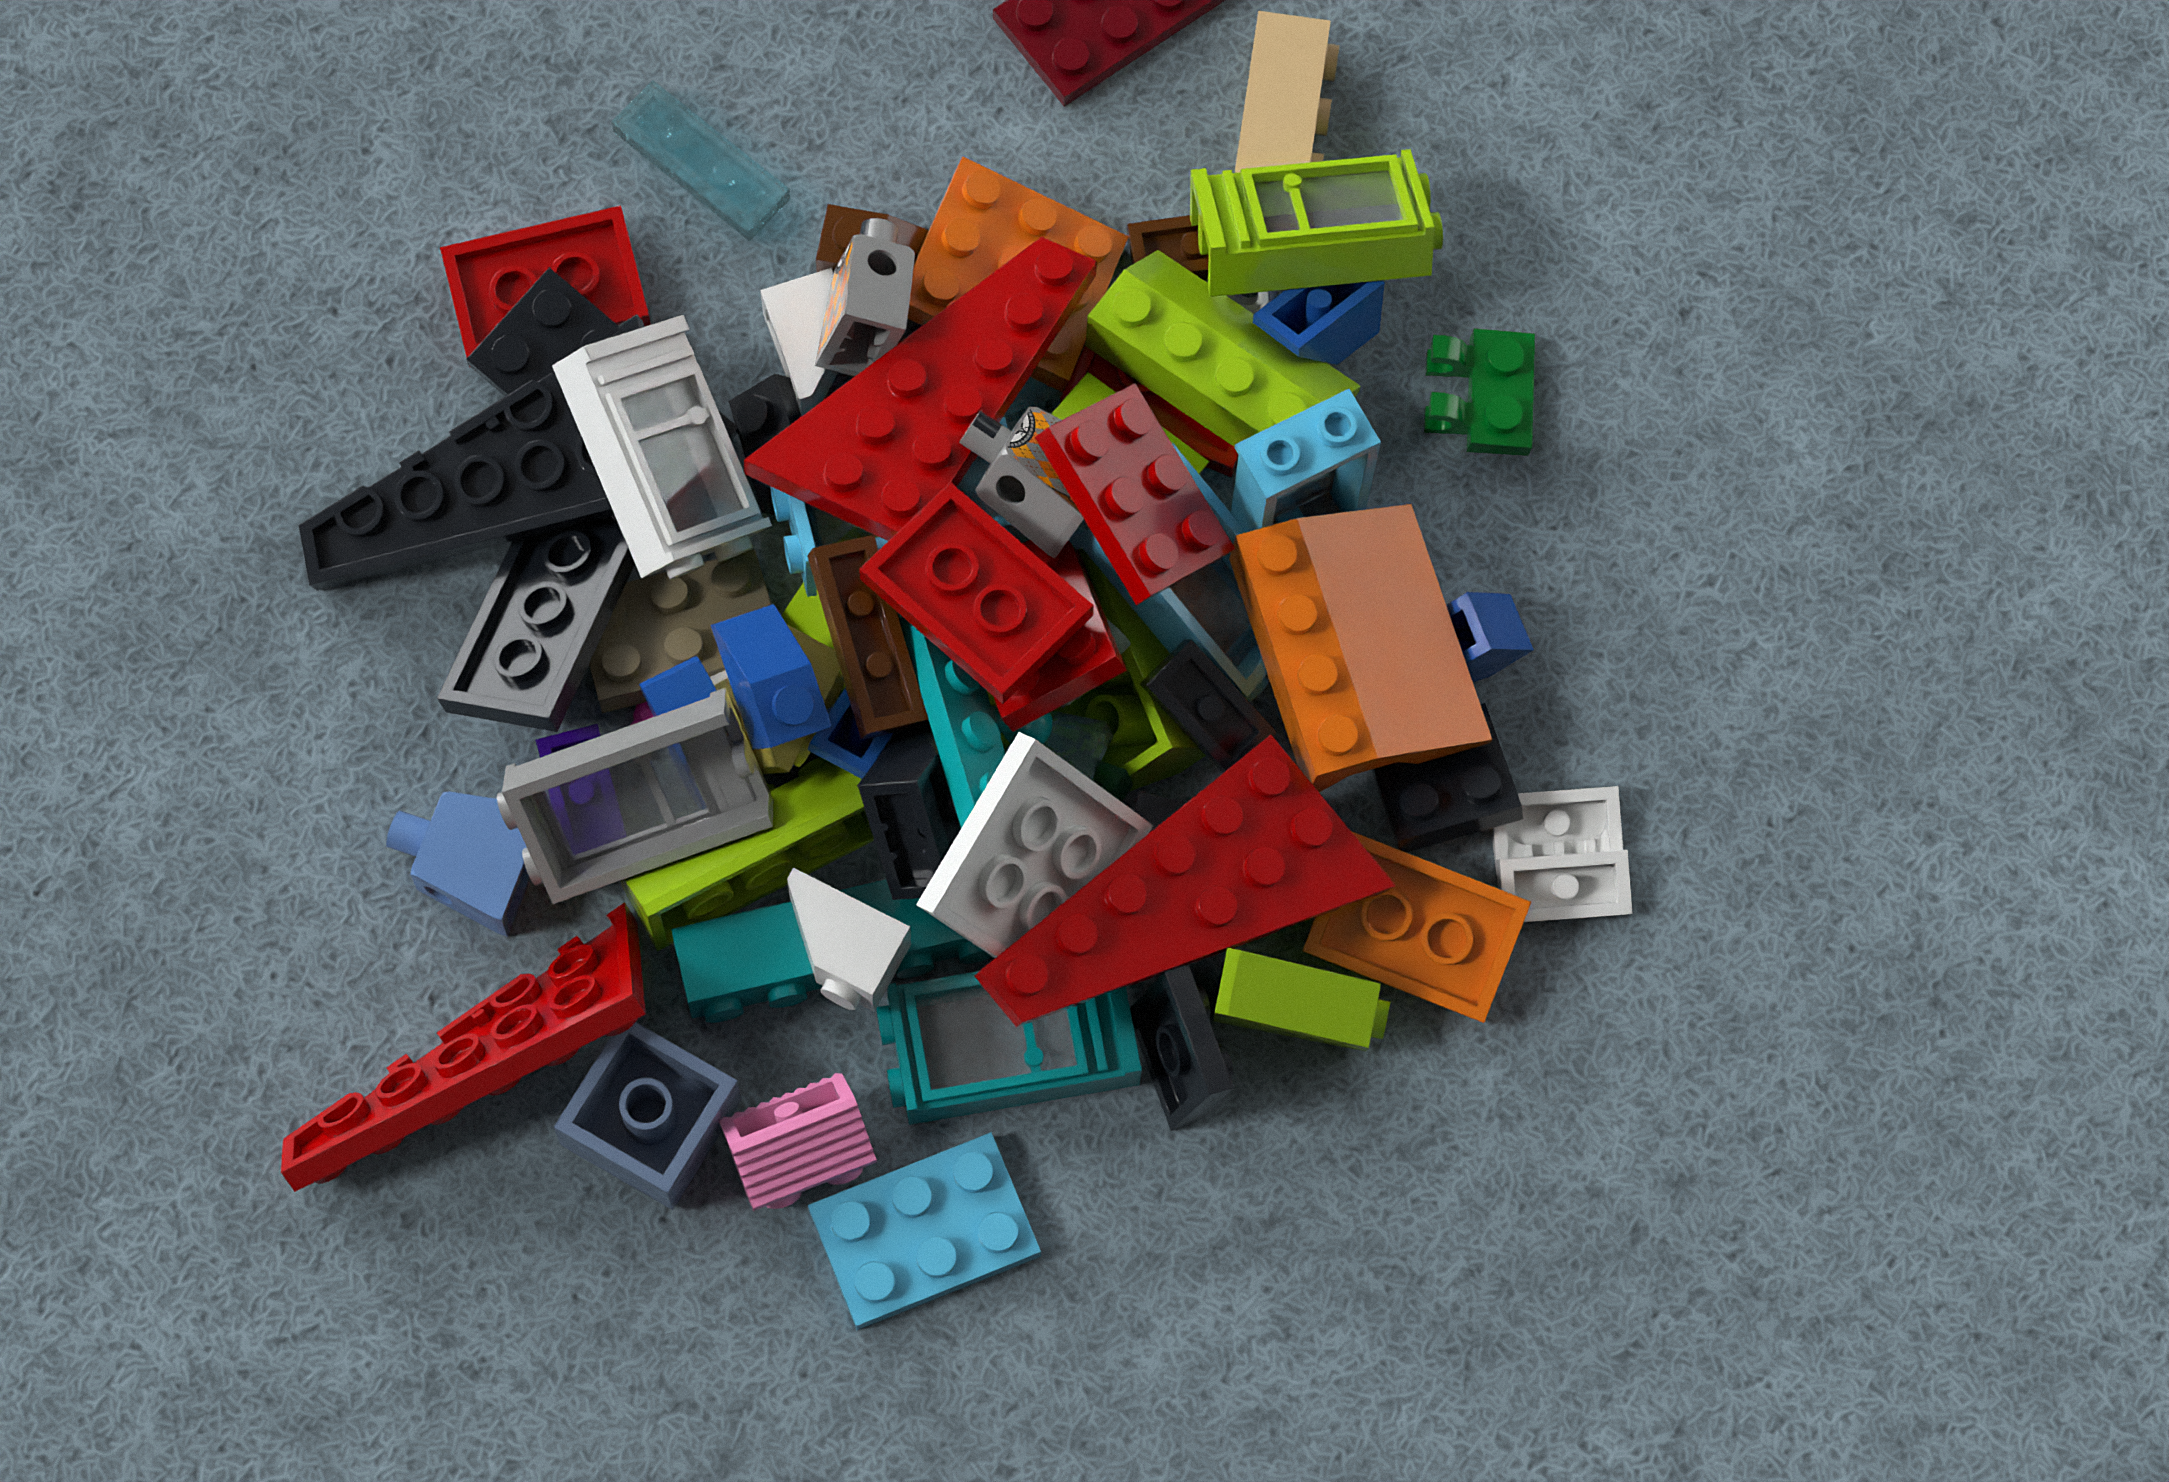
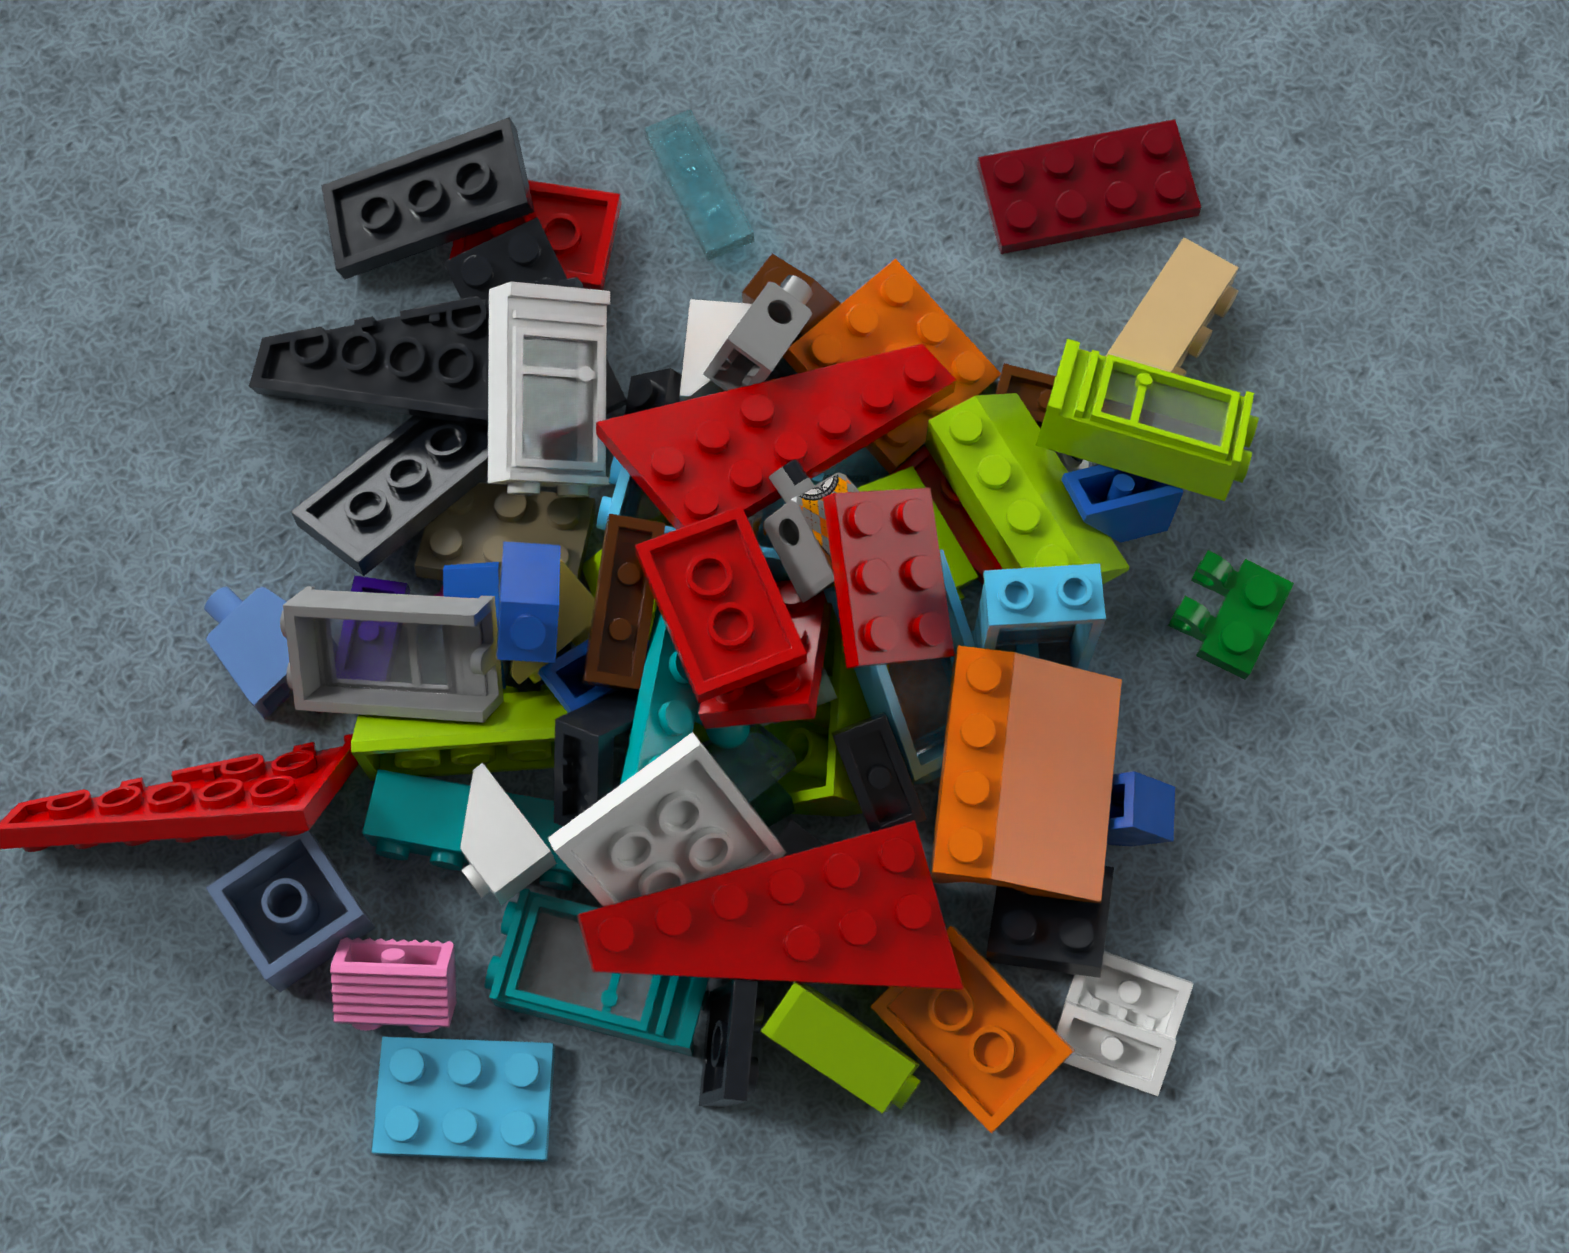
camera: 30 degrees right, 0 degrees up
(409, 296) = (427, 198): none -> black plate

